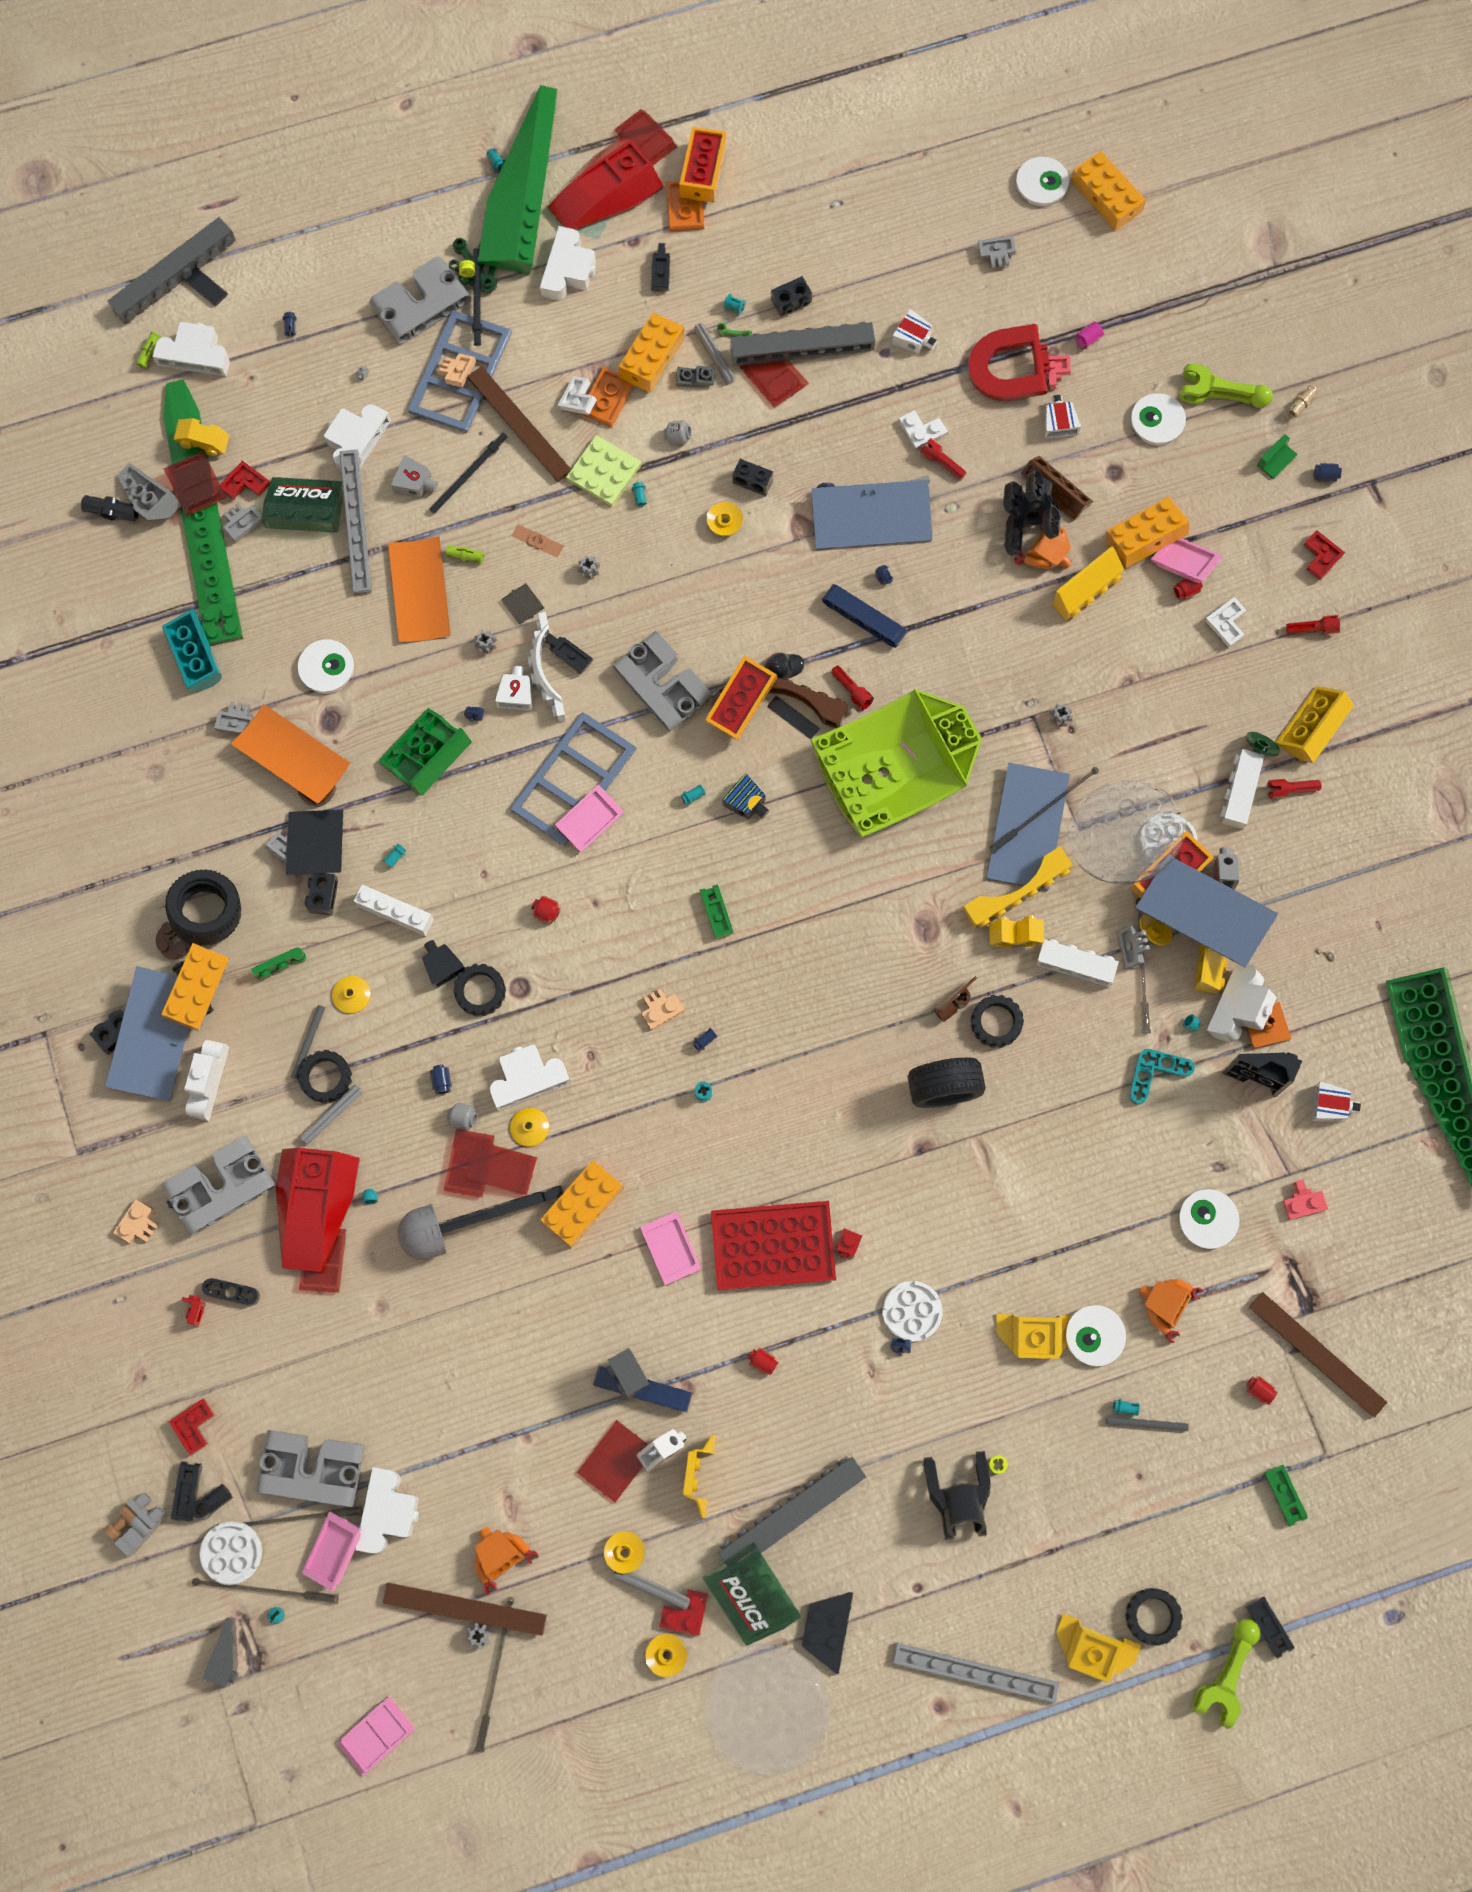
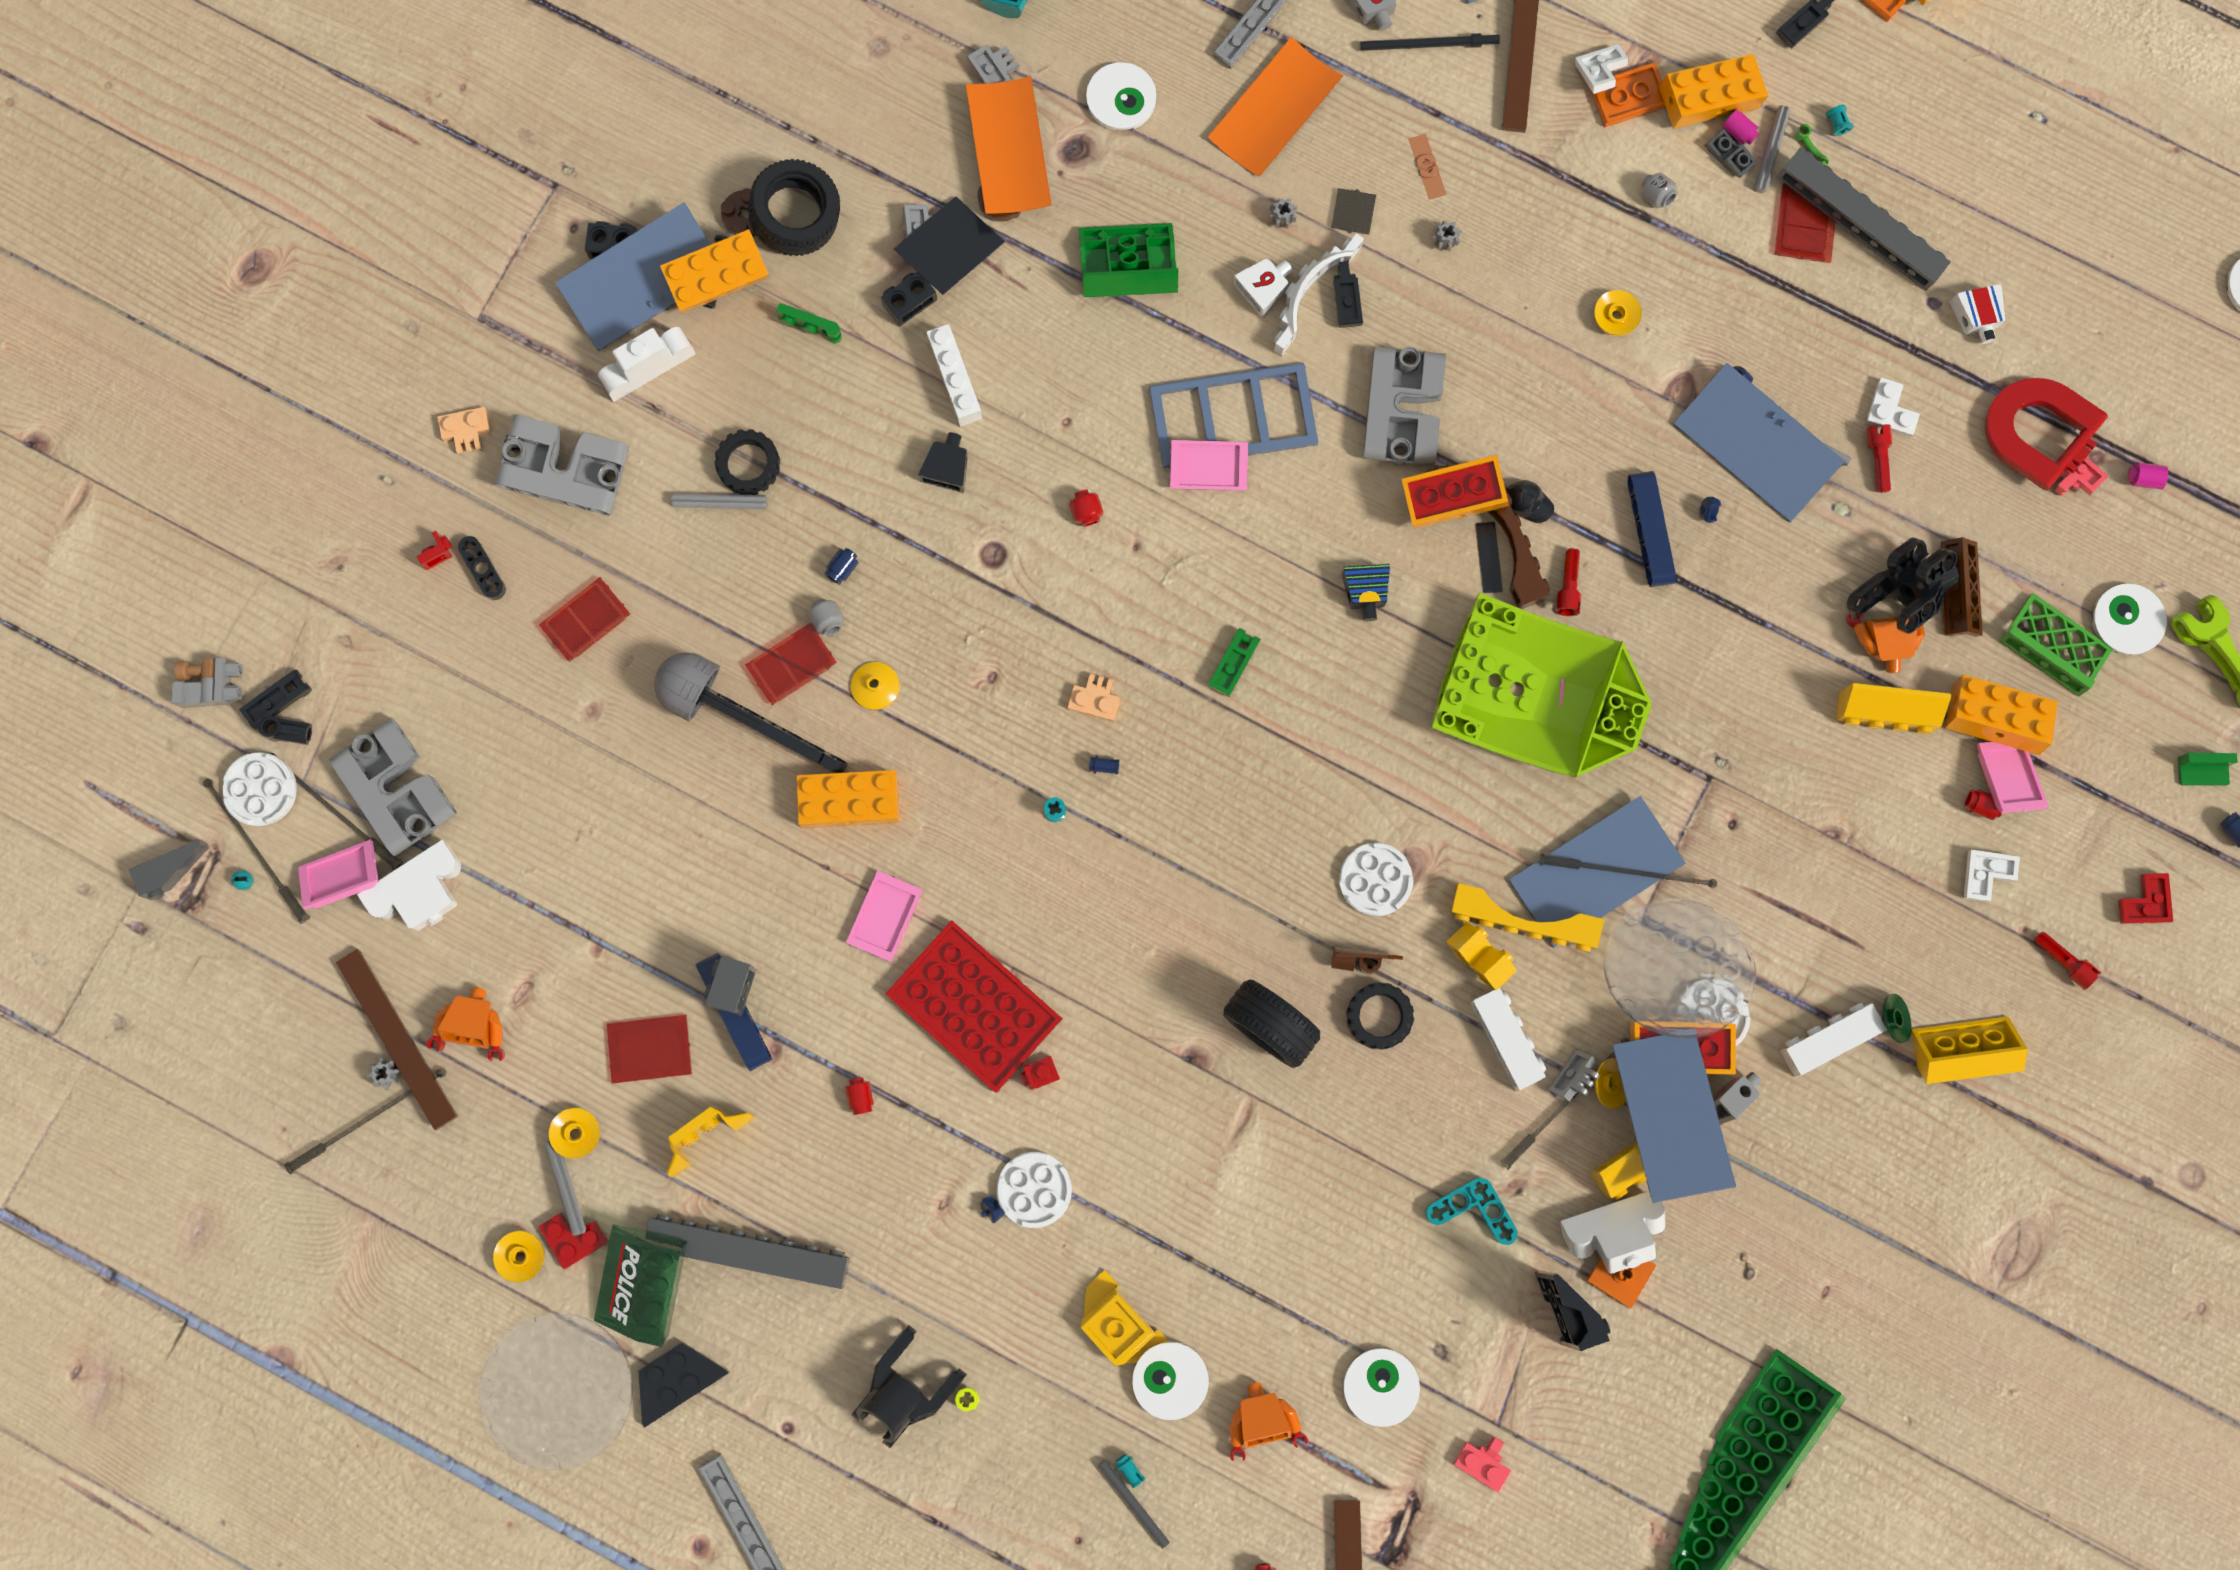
camera: 40 degrees right, 5 degrees up
(187, 1426) = (330, 645): red plate -> none
(308, 1040) = (767, 416): dark grey bar -> none
(312, 1203) = (623, 562): red wedge -> none
(353, 1003) = (843, 424): yellow dish -> none
(369, 1196) = (678, 605): teal hinge -> none
(376, 1736) = (220, 1066): bright pink piece -> none
(395, 855) = (1006, 327): teal pin -> none
(464, 554) = (1348, 114): lime pin -> none
(470, 972) = (949, 497): black tyre -> none
(474, 713) = (1206, 268): dark blue piece -> none
(501, 1168) = (813, 696): clear red piece -> none
(526, 1077) = (916, 639): white brick -> none
(604, 470) = (1554, 160): yellowish green plate -> none
(639, 493) = (1568, 208): teal pin -> none
(666, 1447) = (695, 1080): white torso -> none
(687, 357) = (1741, 128): none -> dark pink brick
(693, 794) = (1323, 536): teal pin -> none
(752, 477) = (1684, 299): black brick -> none
(789, 292) = (1902, 158): black brick -> none
(916, 950) = (1375, 879): none -> white tile
(997, 250) = (2146, 309): light grey hinge -> none
(1060, 419) = (2034, 528): torso -> none
(1063, 710) = (1737, 808): light grey gear -> none
(1139, 479) = (2048, 658): none -> bright green fence
(1191, 1023) = (1554, 1199): teal hinge -> none
(1283, 787) = (1873, 1078): red piece -> none
(1332, 1103) = (1605, 1405): torso -> none

